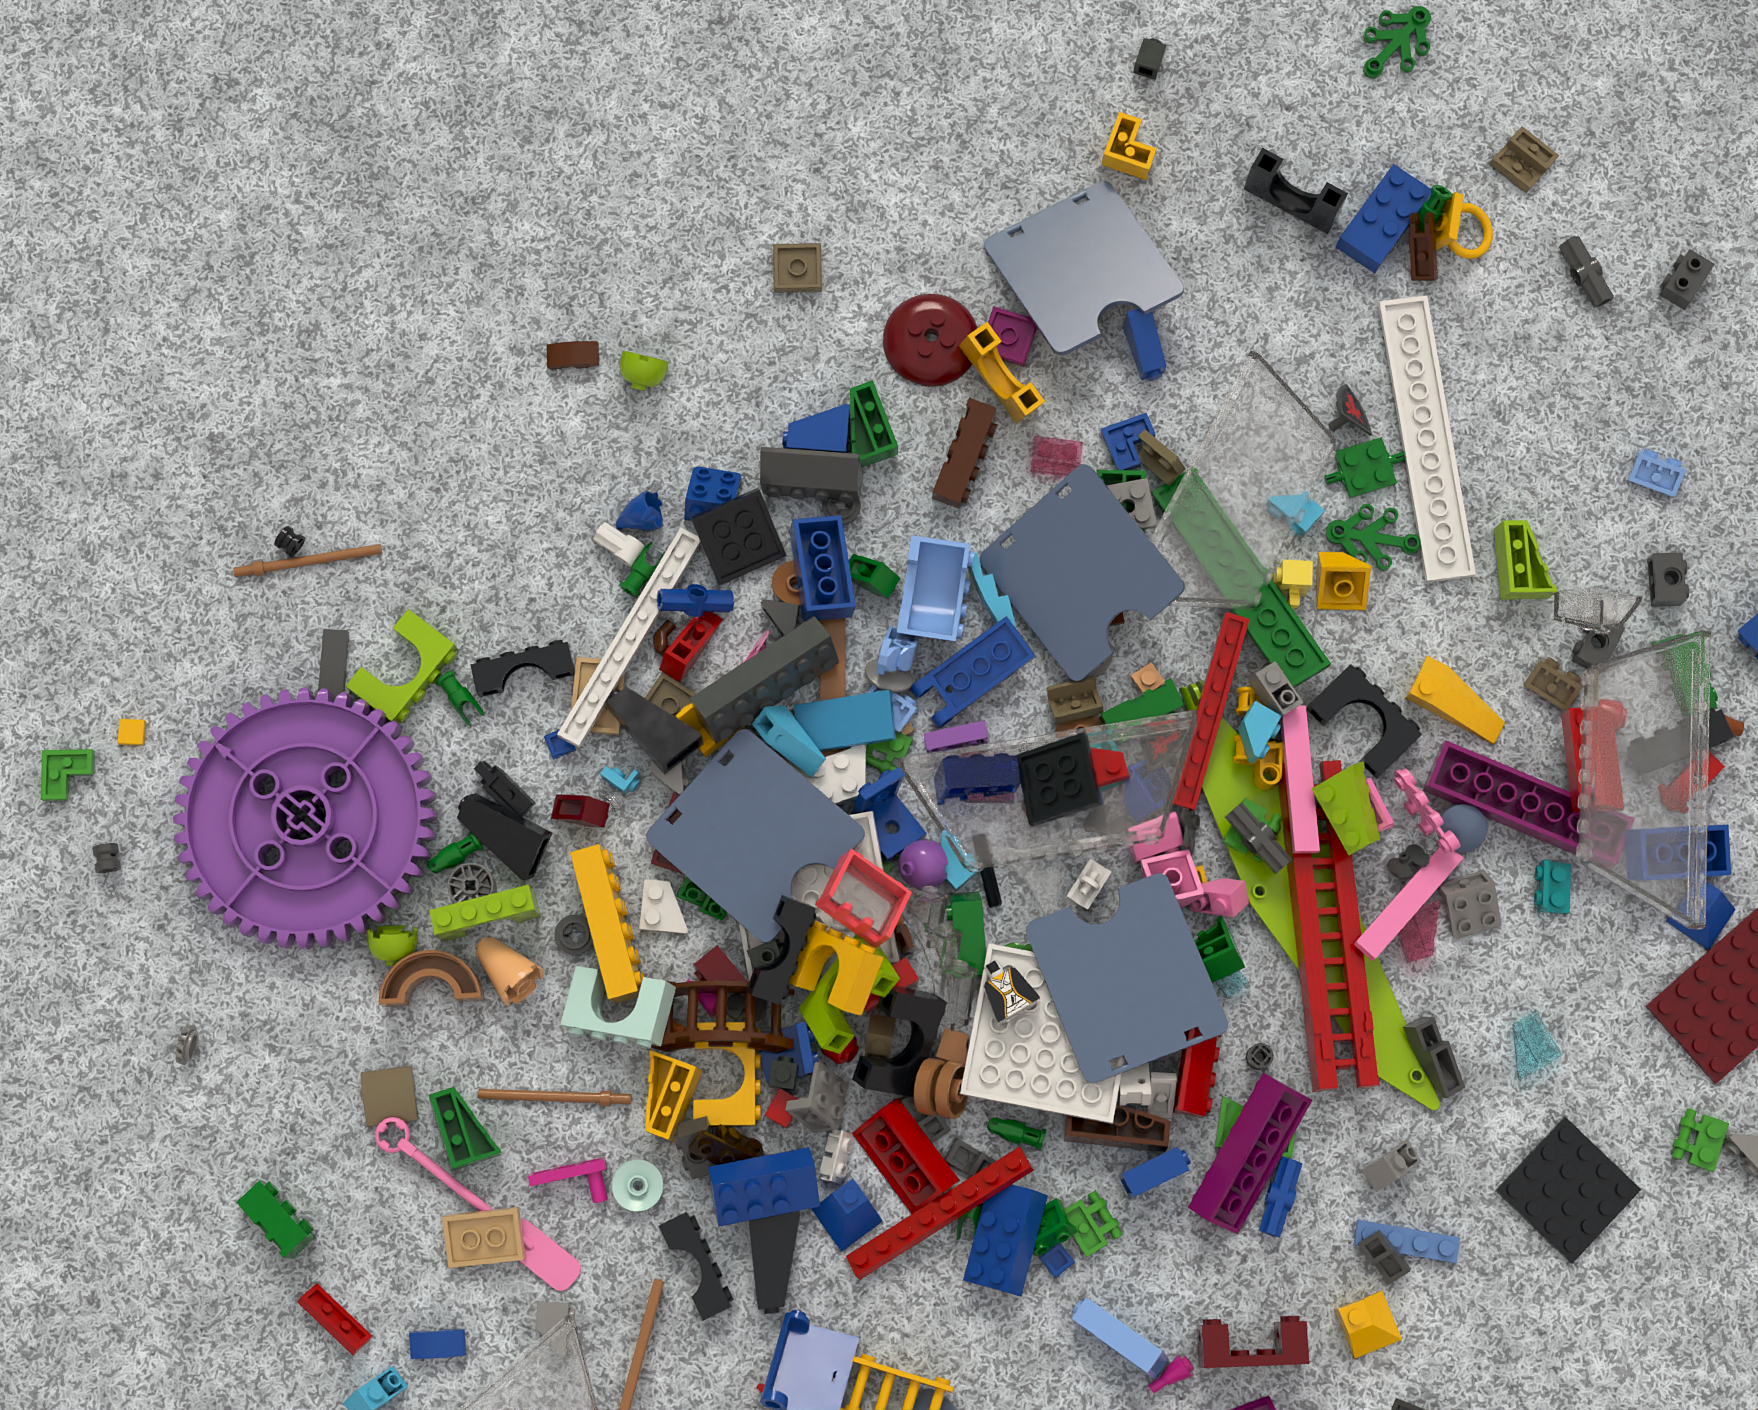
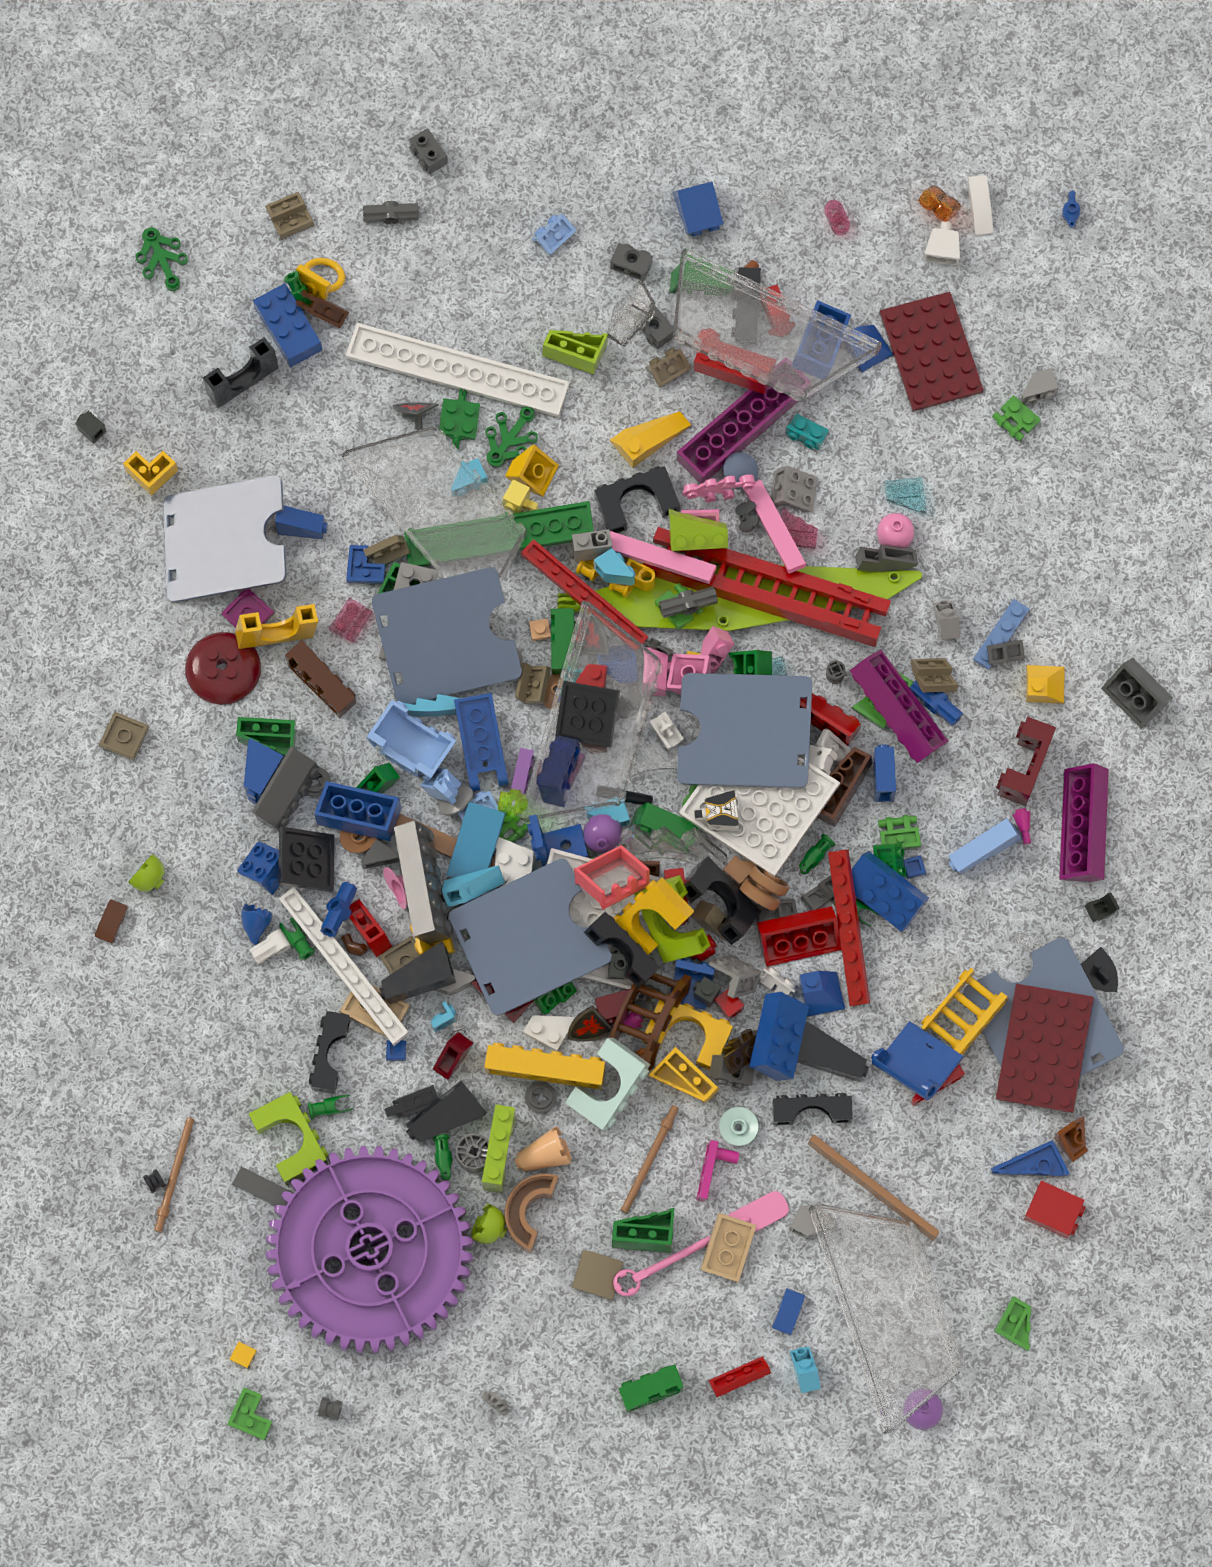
camera: 65 degrees left, 5 degrees down
(683, 953) = (589, 1026): none -> shield
(910, 741) = (506, 800): none -> clear neon green brick
(1311, 1180) = (934, 675): none -> dark tan slope
(1477, 1052) = (895, 530): none -> bright pink cylinder
(1568, 1190) = (1012, 516): black plate -> none

